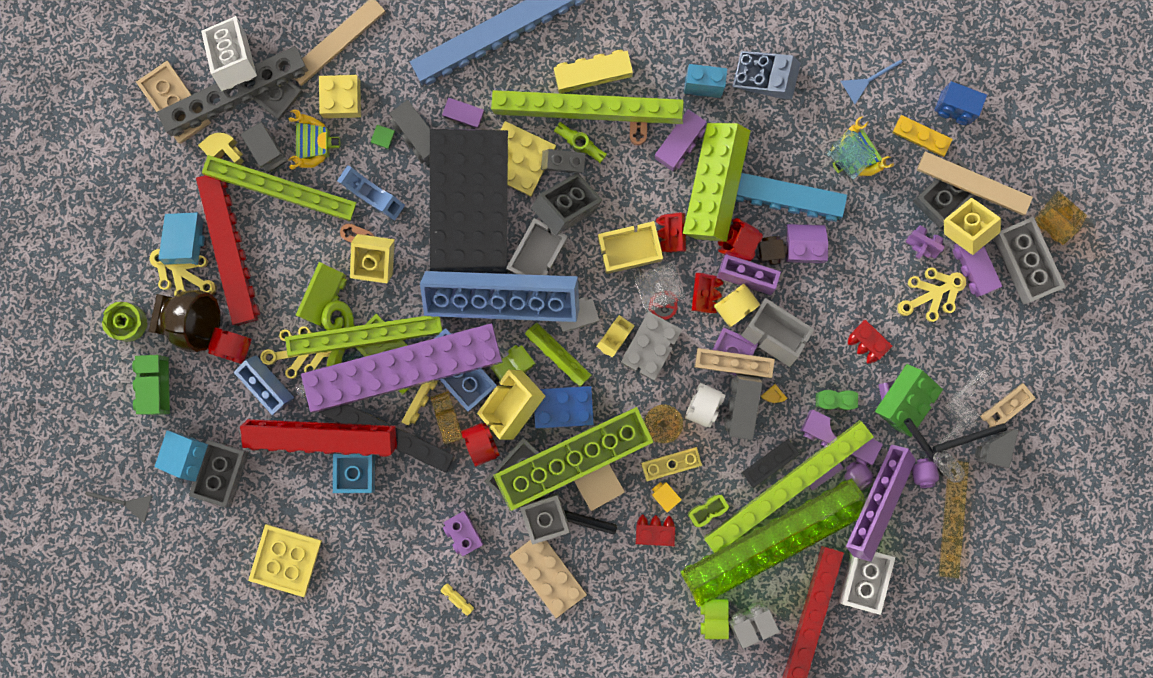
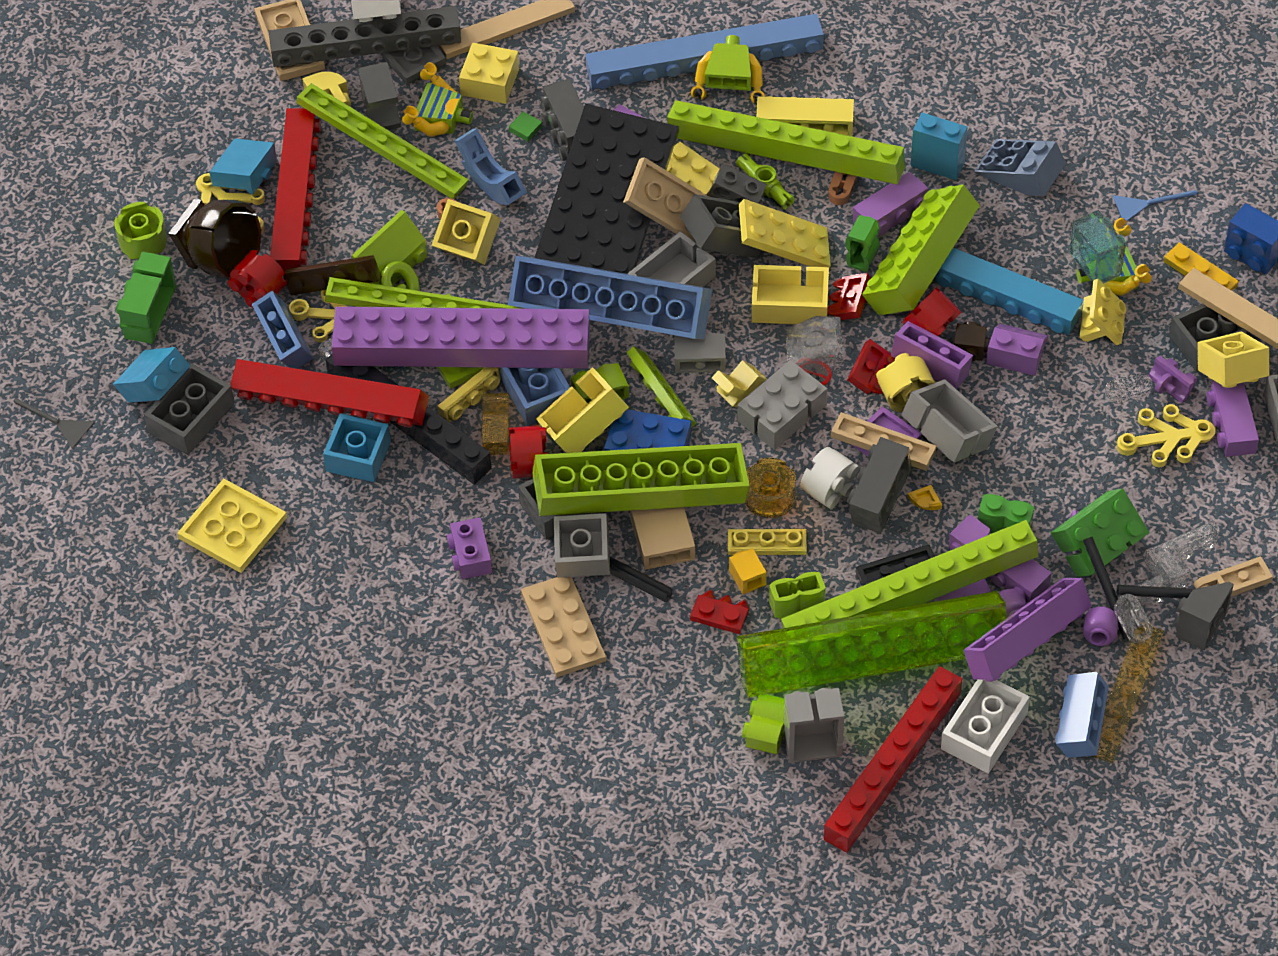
camera: 15 degrees right, 30 degrees down
(284, 328) = (316, 277): none -> dark brown plate
(457, 599) = (434, 622): light yellow axle -> none
(515, 193) = (660, 196): none -> tan plate
(525, 47) = (729, 68): none -> lime torso
(611, 197) = (784, 234): none -> light yellow plate
(671, 186) = (862, 243): none -> bright green brick
(861, 200) = (1102, 315): none -> light yellow bracket
(870, 341) = (1070, 469): red plate -> none
(892, 254) = (1128, 388): none -> clear beam
(930, 553) = (1082, 715): none -> medium blue brick

